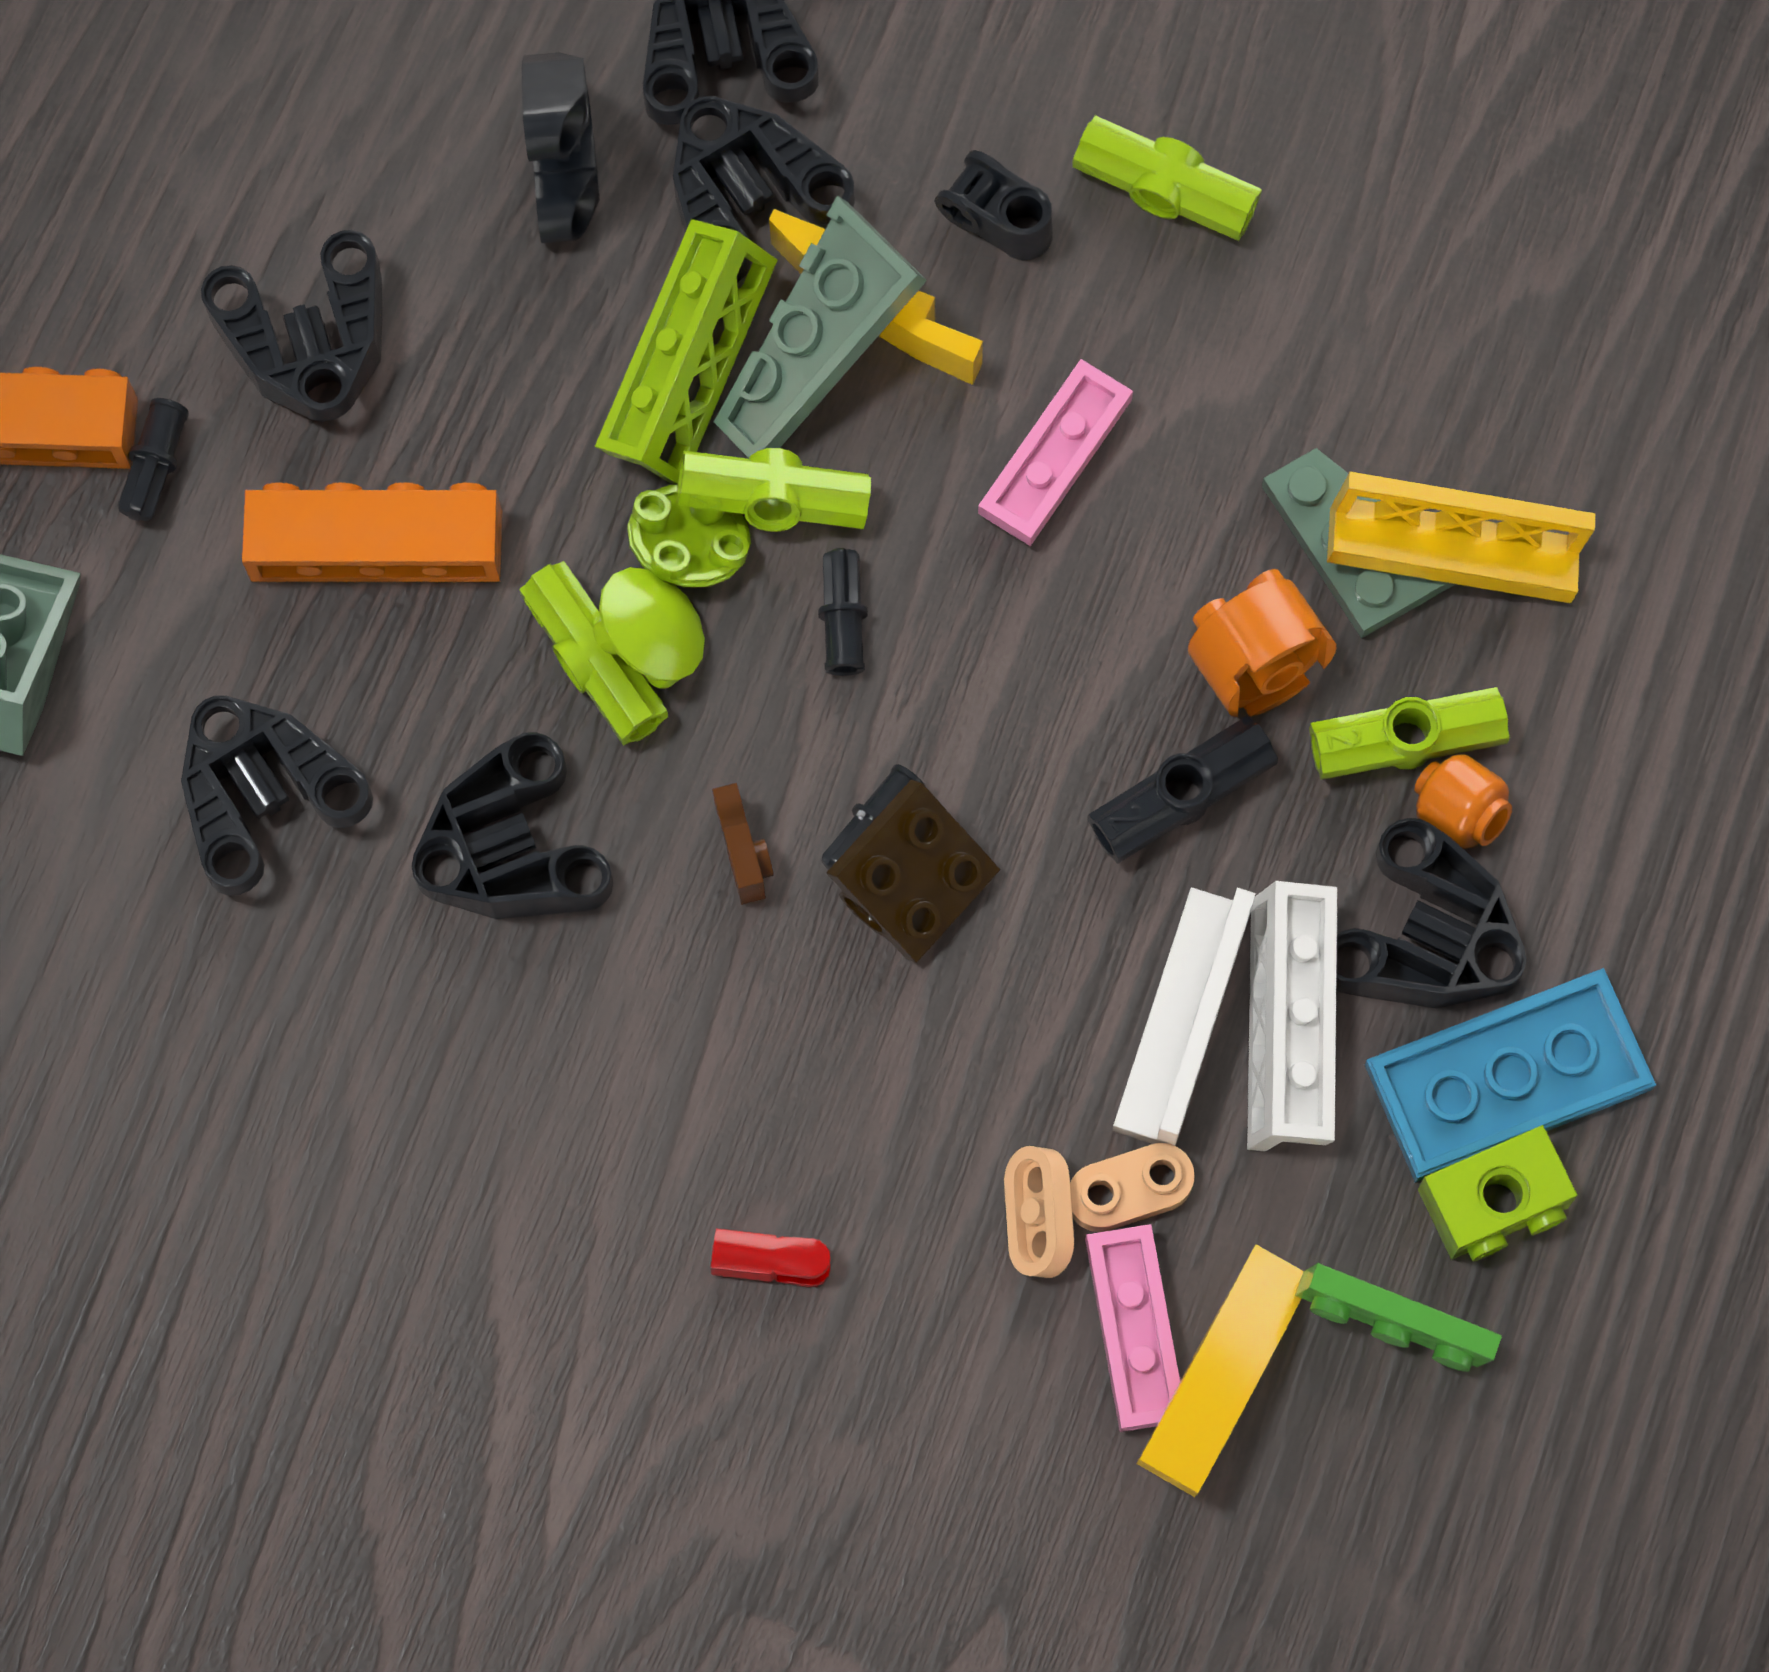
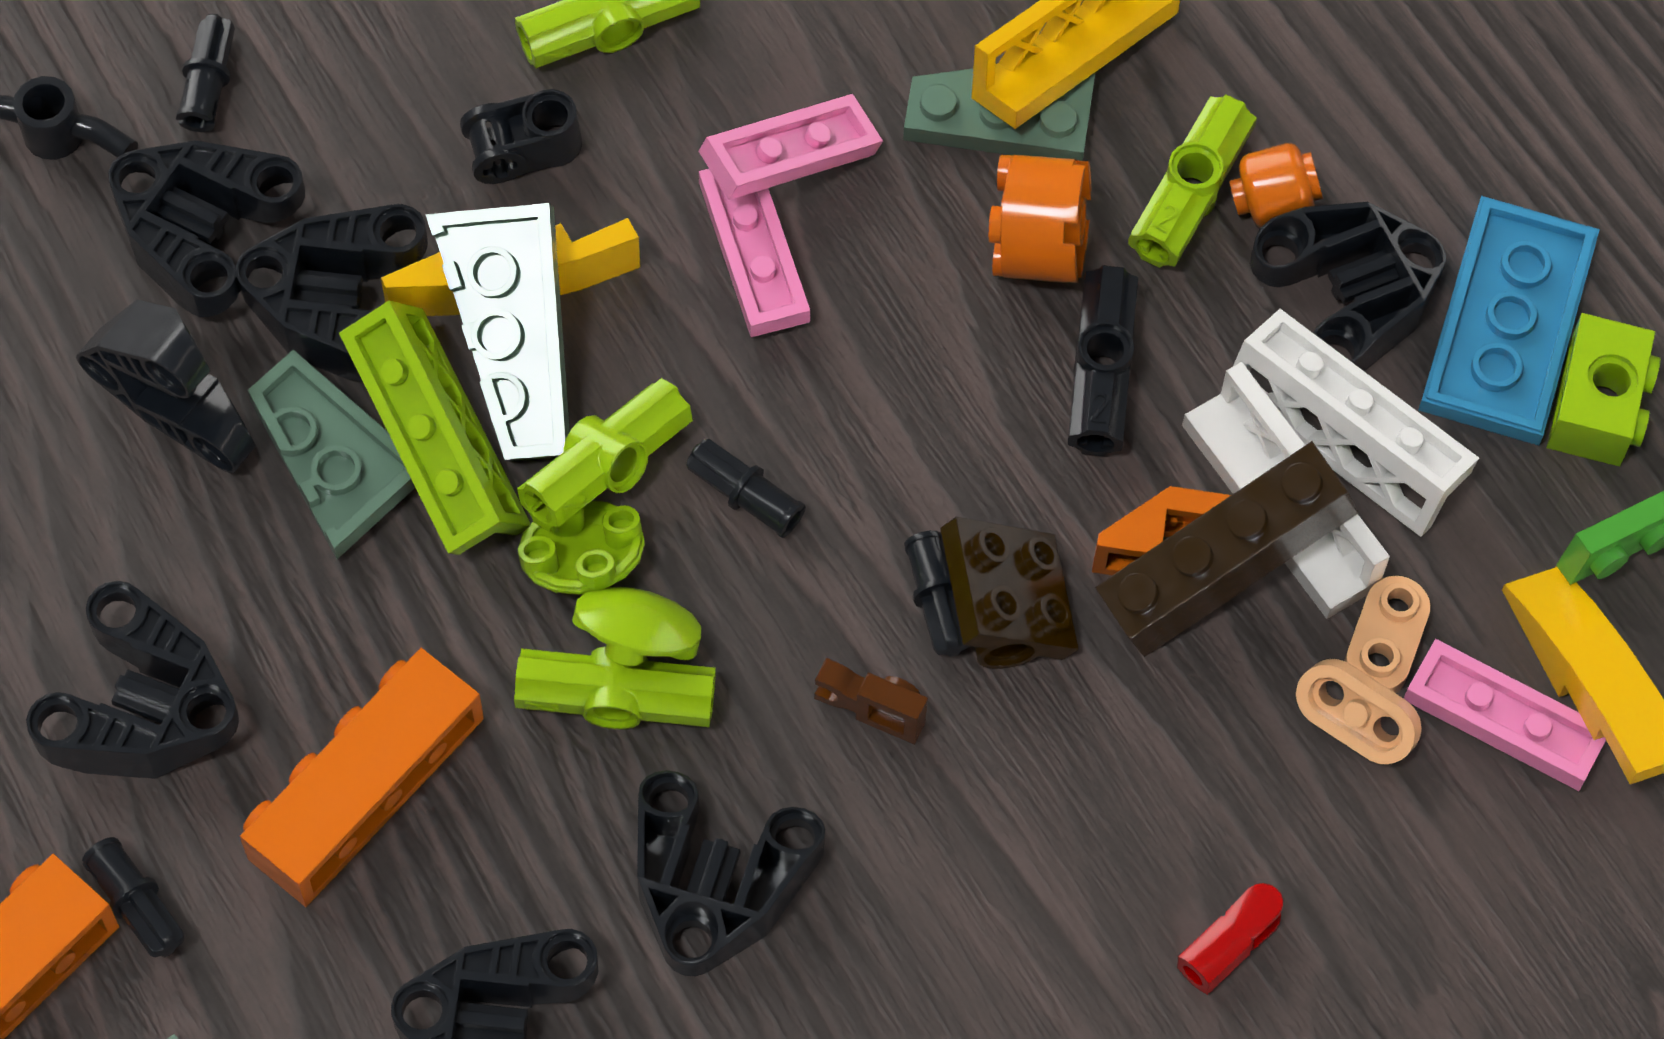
camera: 55 degrees left, 10 degrees down
(611, 292) = (331, 450): none -> sand green wing
(1049, 936) = (1148, 525): none -> orange slope
(1076, 1007) = (1227, 549): none -> dark brown brick
(1158, 408) = (790, 146): none -> bright pink plate

